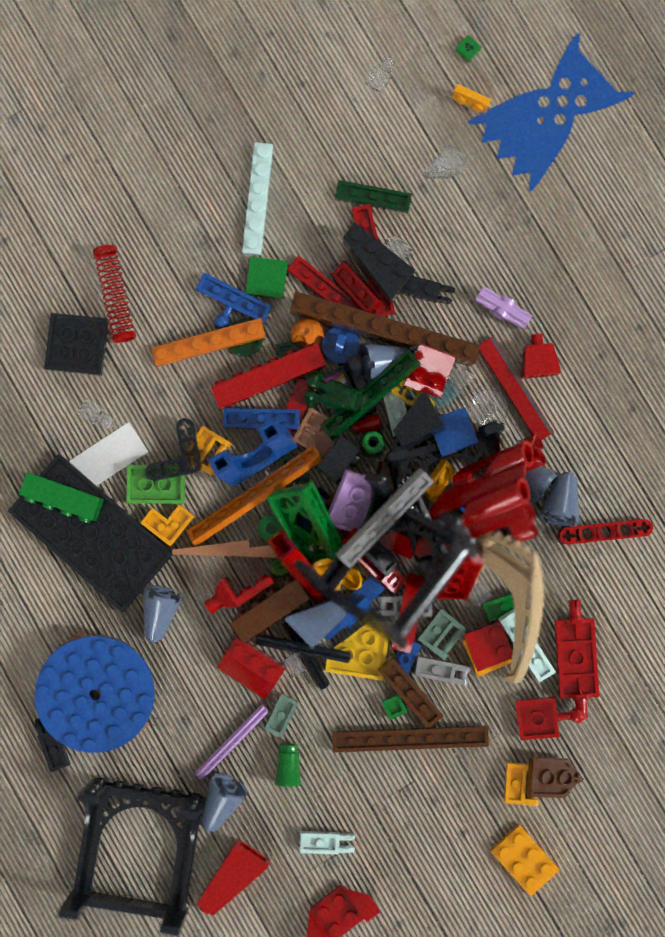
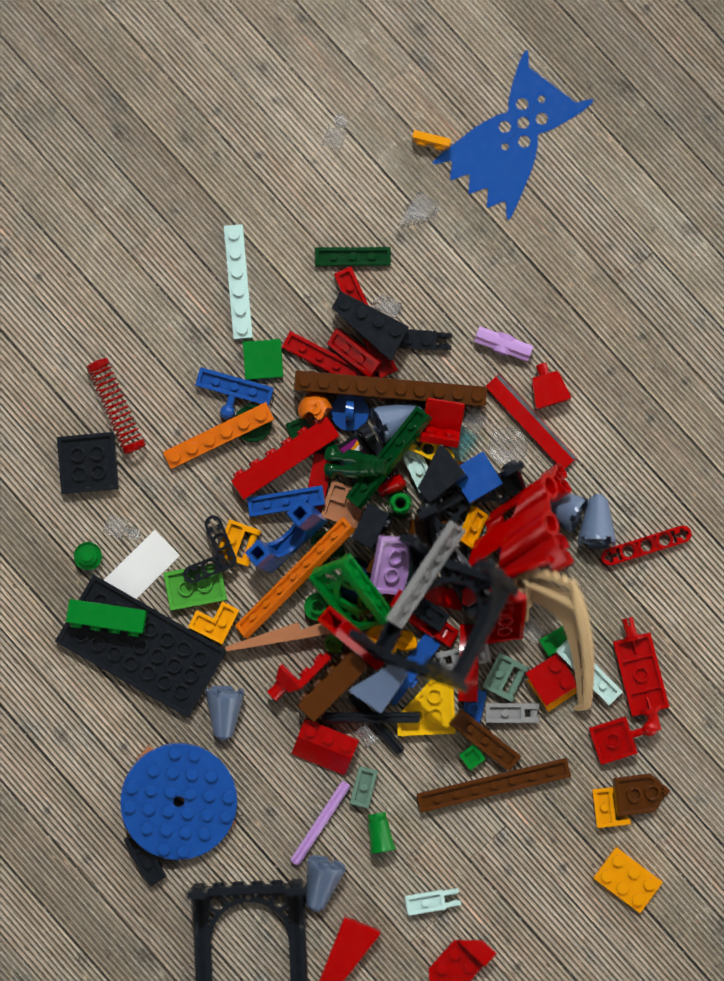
camera: 10 degrees left, 0 degrees up
(57, 434) = (88, 556): none -> green plate
(468, 48) = (418, 88): green tile -> none
(493, 531) = (529, 566): none -> red bar

